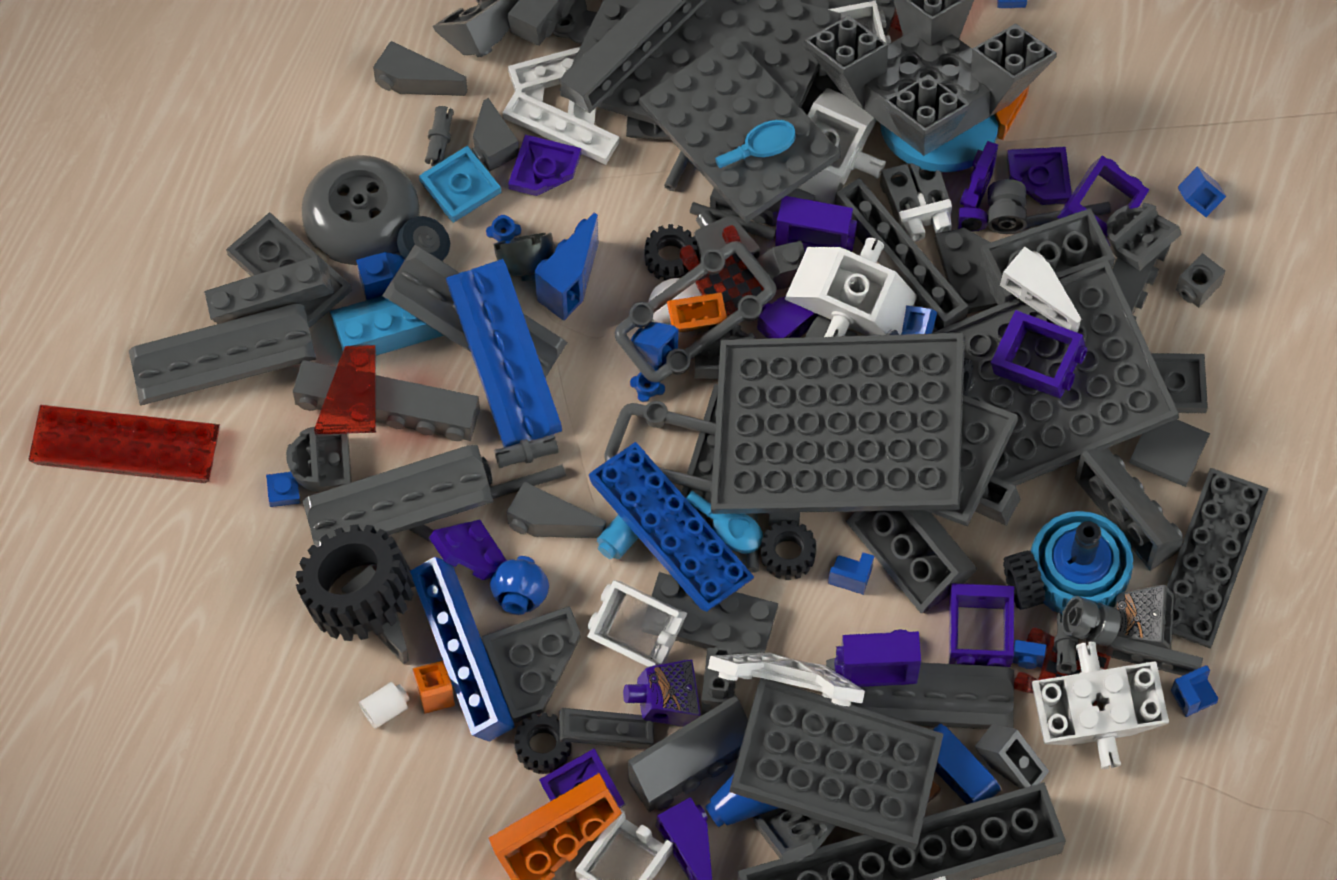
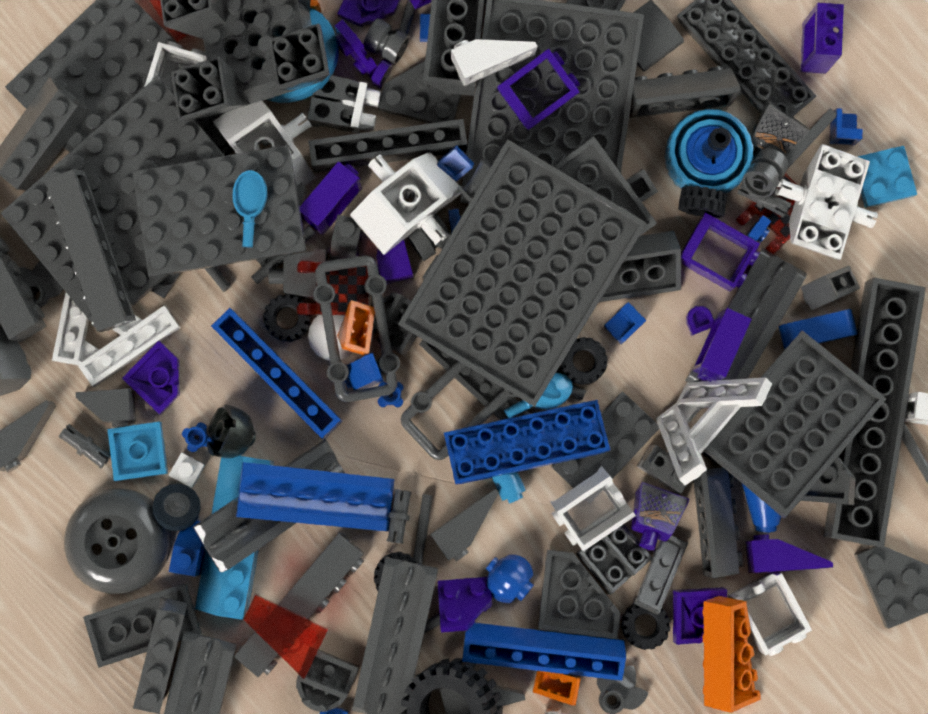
camera: 65 degrees left, 20 degrees up
(464, 754) = (625, 691): none -> dark grey plate
(465, 238) = (187, 470): none -> white plate
(565, 275) = (271, 413): blue slope -> none
(598, 678) = (615, 558): none -> dark grey slope
(608, 267) = (277, 373): none -> blue brick
(1168, 761) = (887, 177): none -> dark azure plate
(1274, 604) = (820, 43): none -> dark purple window

